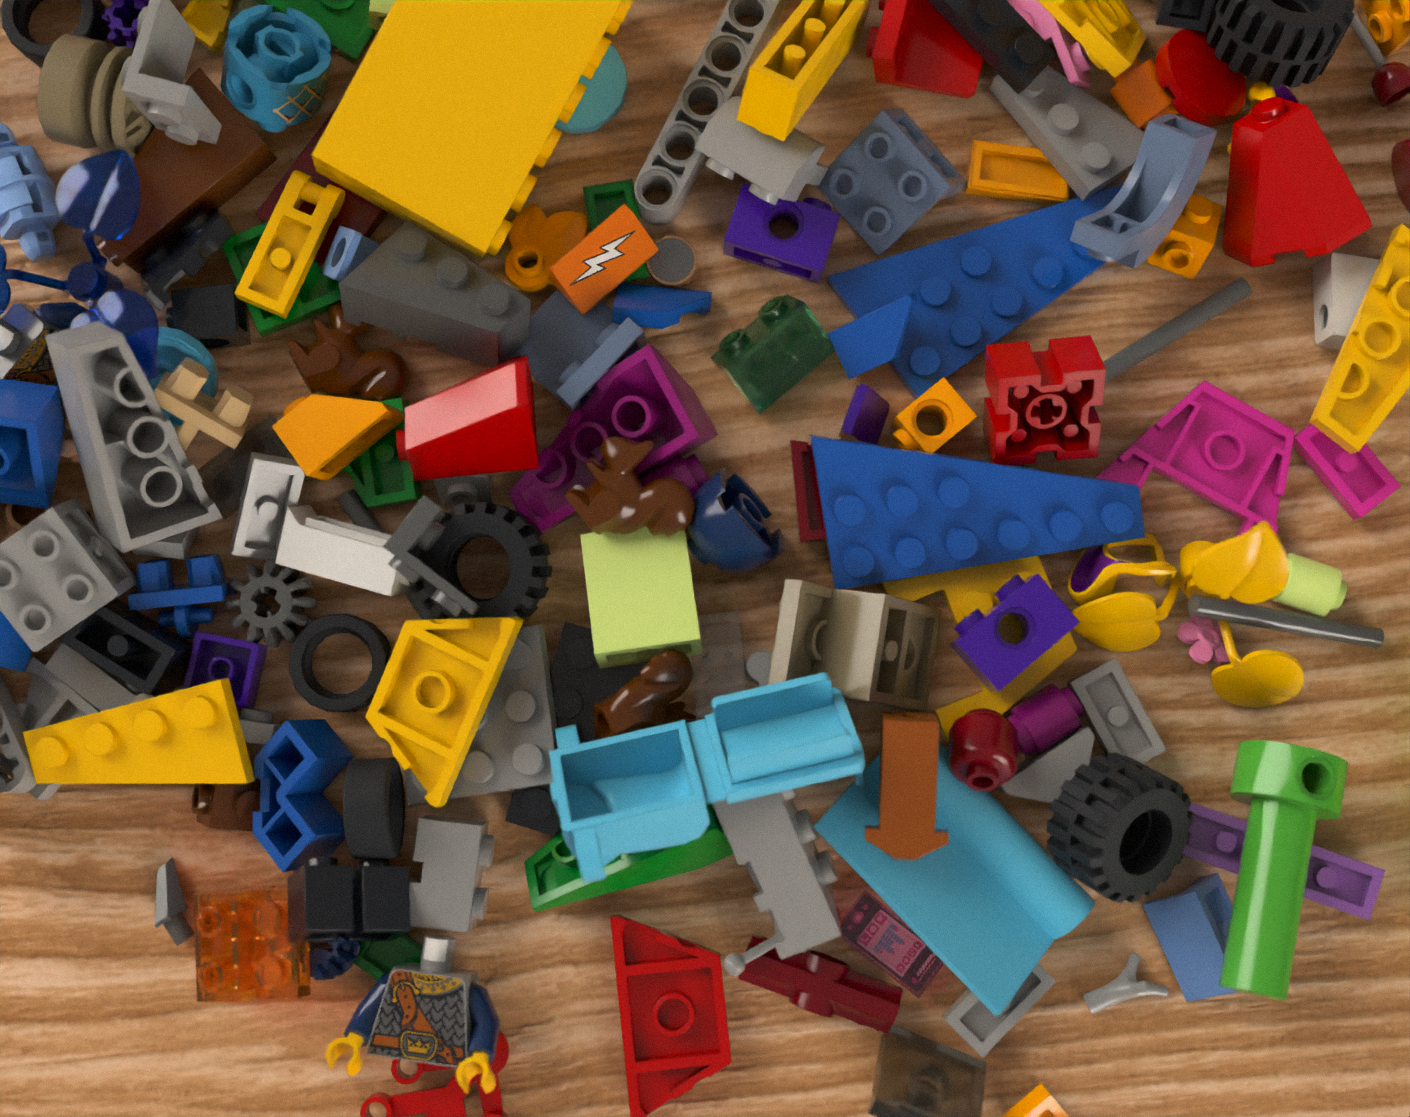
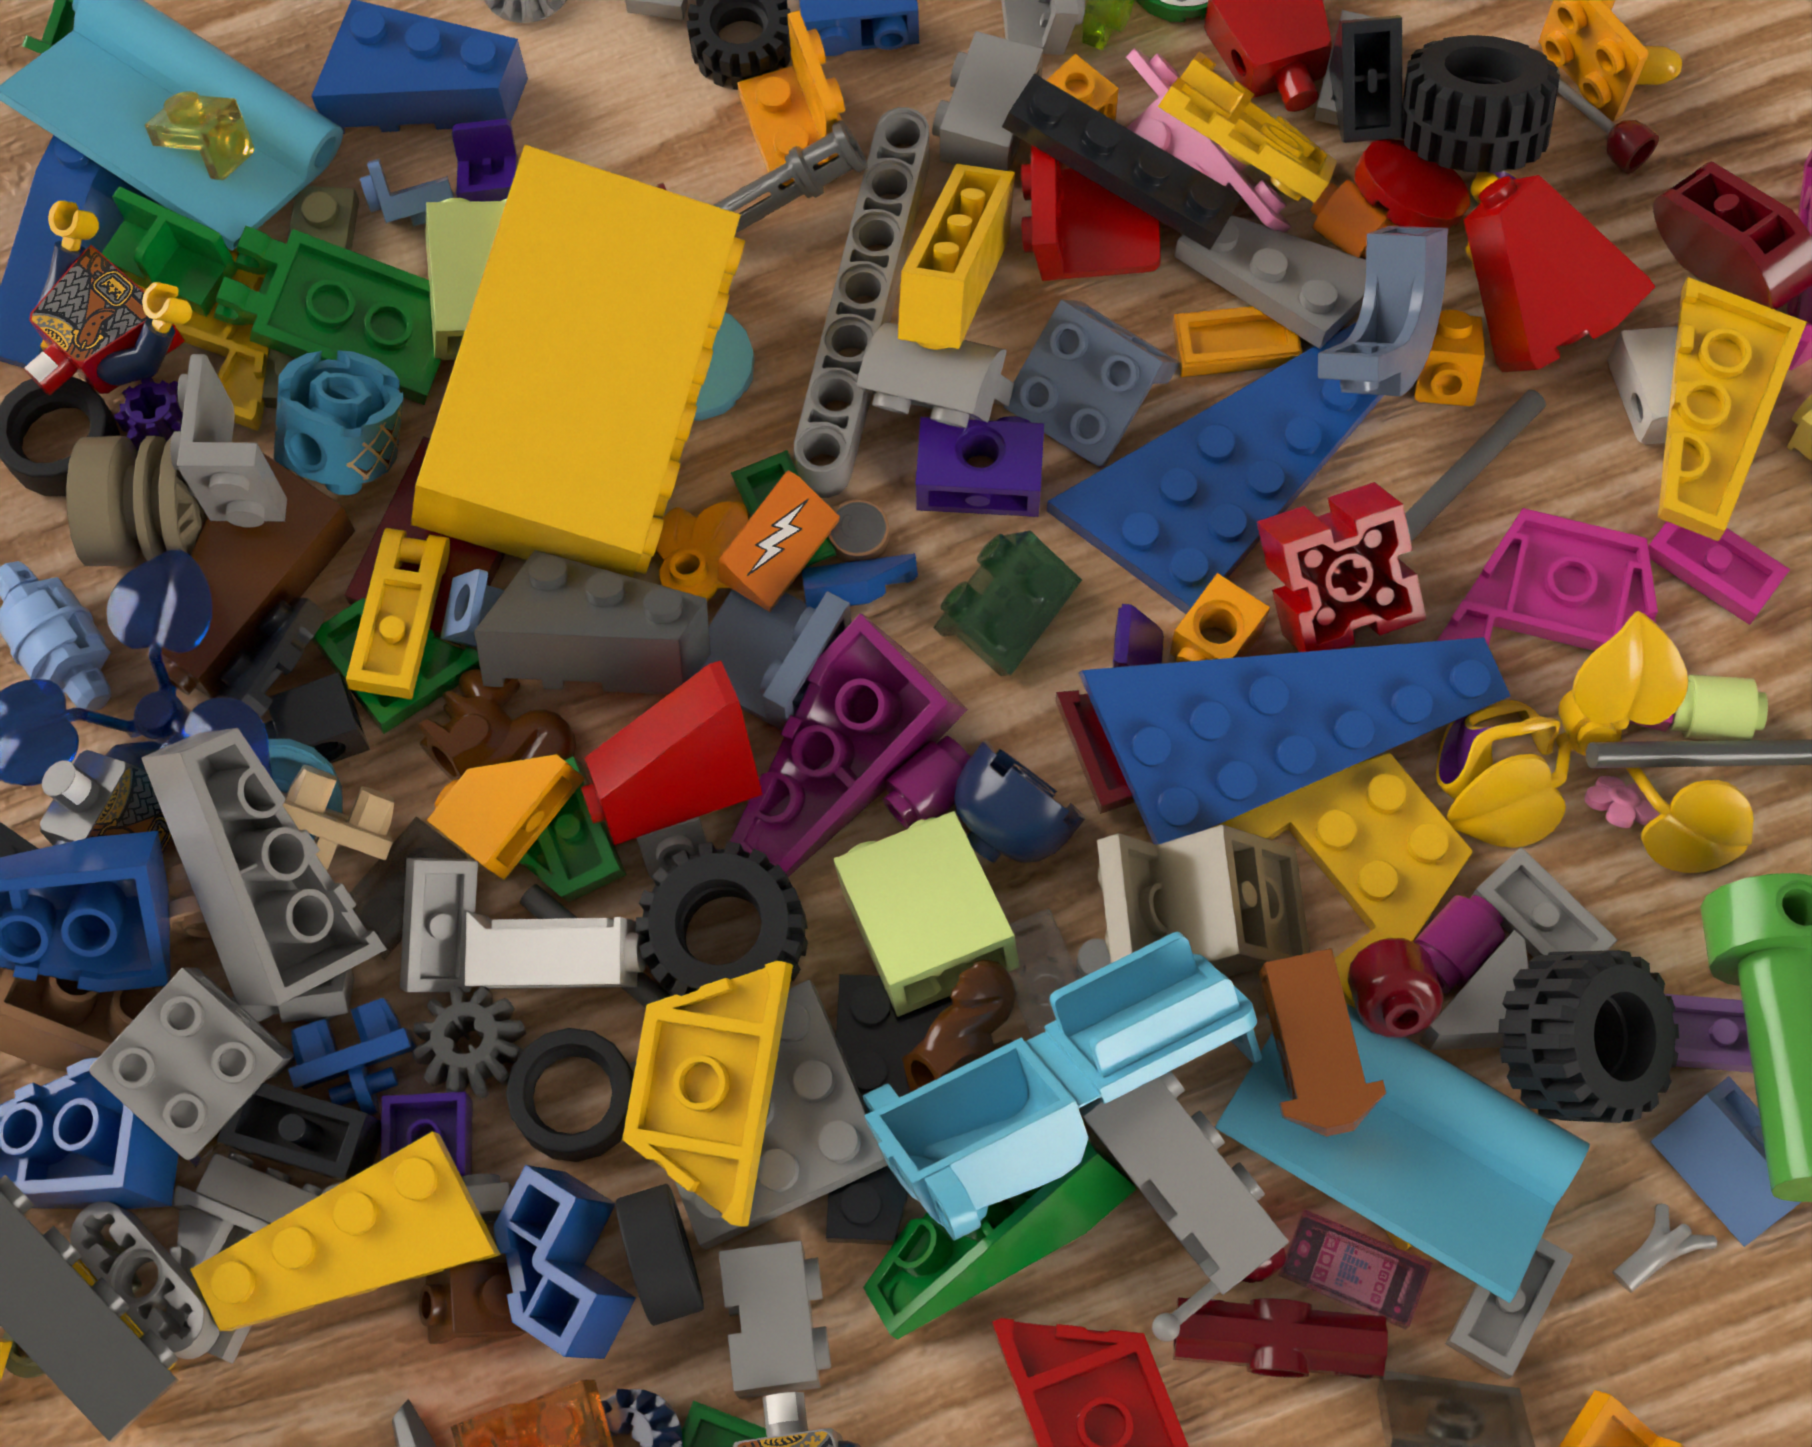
camera: 15 degrees left, 15 degrees down
(362, 901) = (677, 1367): black piece -> none
(422, 530) = (643, 886): dark grey bracket -> none
(620, 501) = (875, 805): reddish brown animal -> none
(873, 337) = (1121, 551): blue tile -> none
(1042, 620) = (1376, 876): dark purple brick -> none

